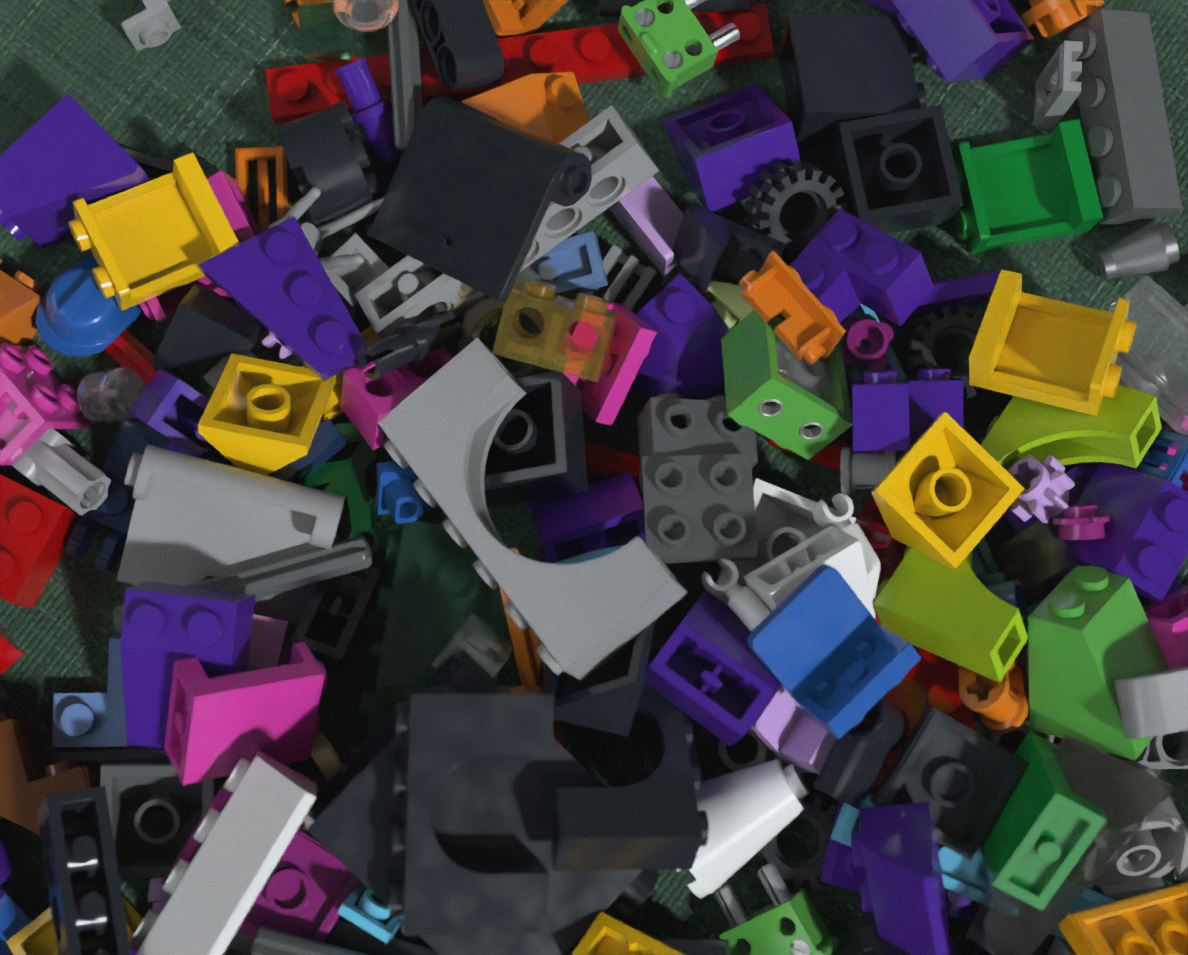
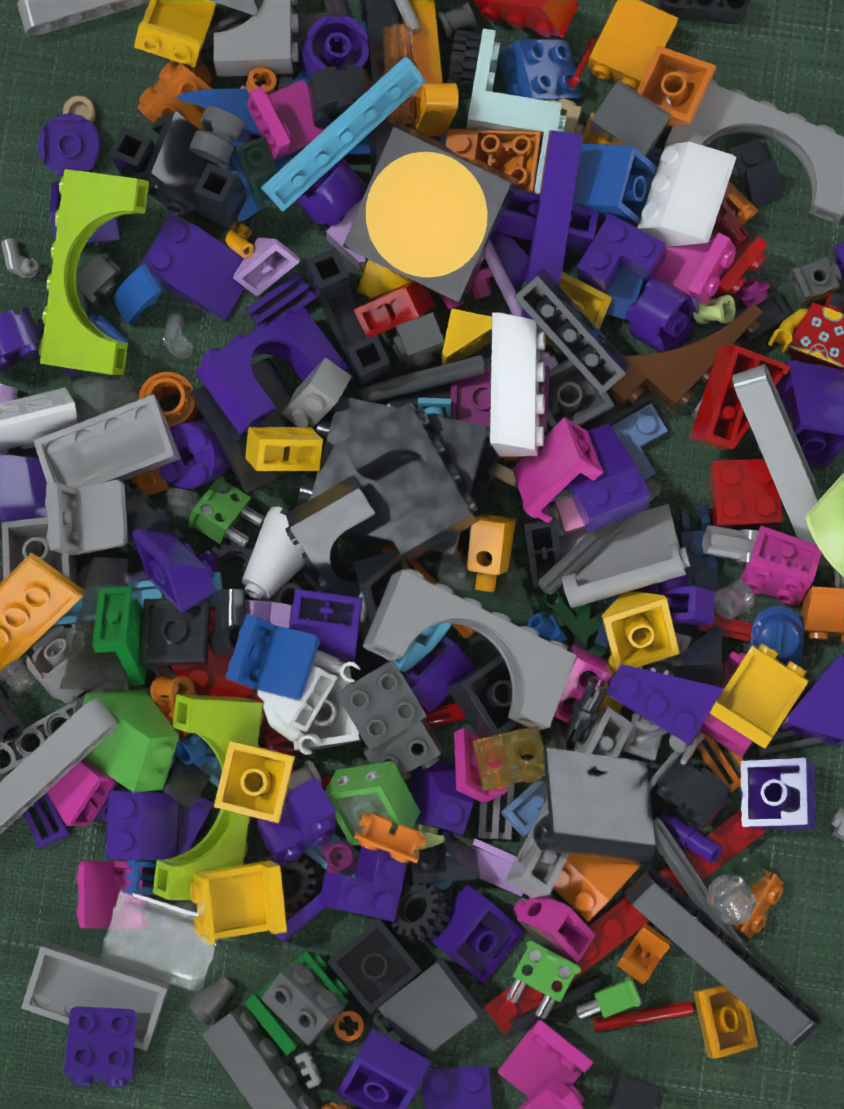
camera: 150 degrees right, 0 degrees up
(217, 101) = (778, 794): none -> dark purple slope
(399, 656) = (492, 535): none -> light orange torso
(621, 81) = (543, 919): none -> dark pink torso
(981, 122) = (342, 1033): none -> orange bush
(1022, 172) = (302, 1002): none -> dark grey brick
(1044, 486) = (204, 818): lavender gear -> none
(1081, 522) = (172, 811): magenta plate -> none

